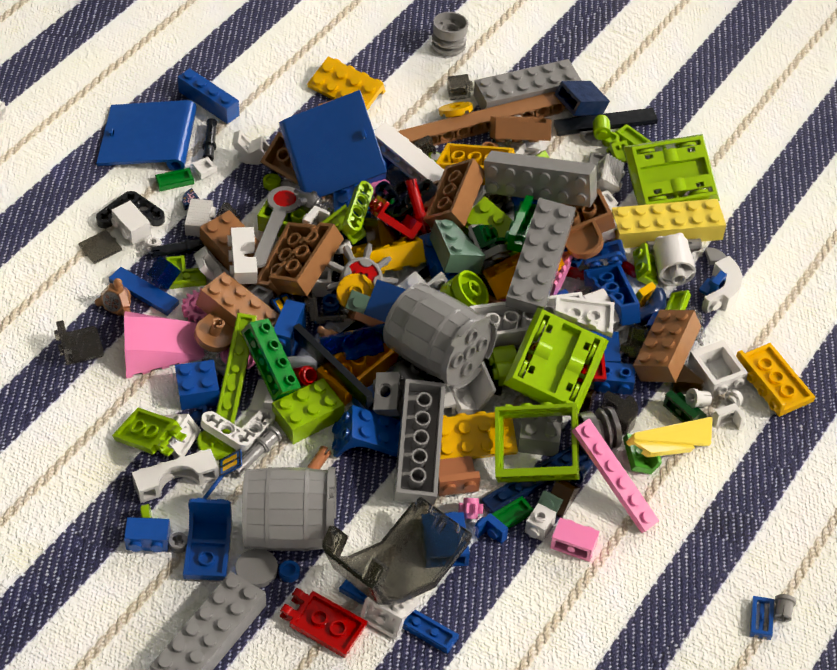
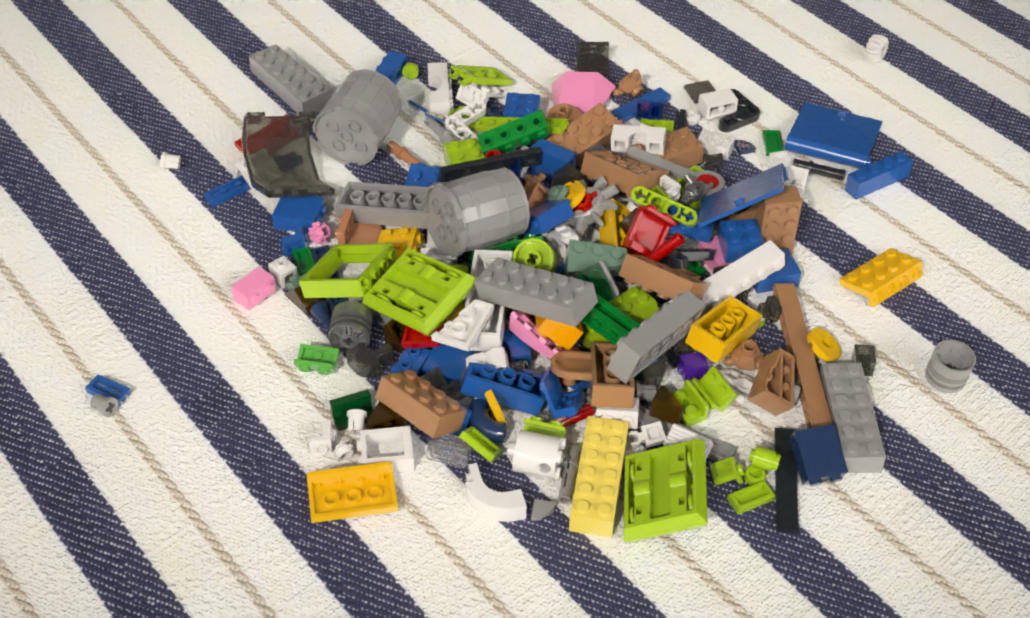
camera: 110 degrees right, 5 degrees down
(615, 475) = (288, 313): bright pink plate -> none
(673, 438) = (312, 375): light yellow wedge -> none
(713, 284) = (494, 481): blue bracket -> none

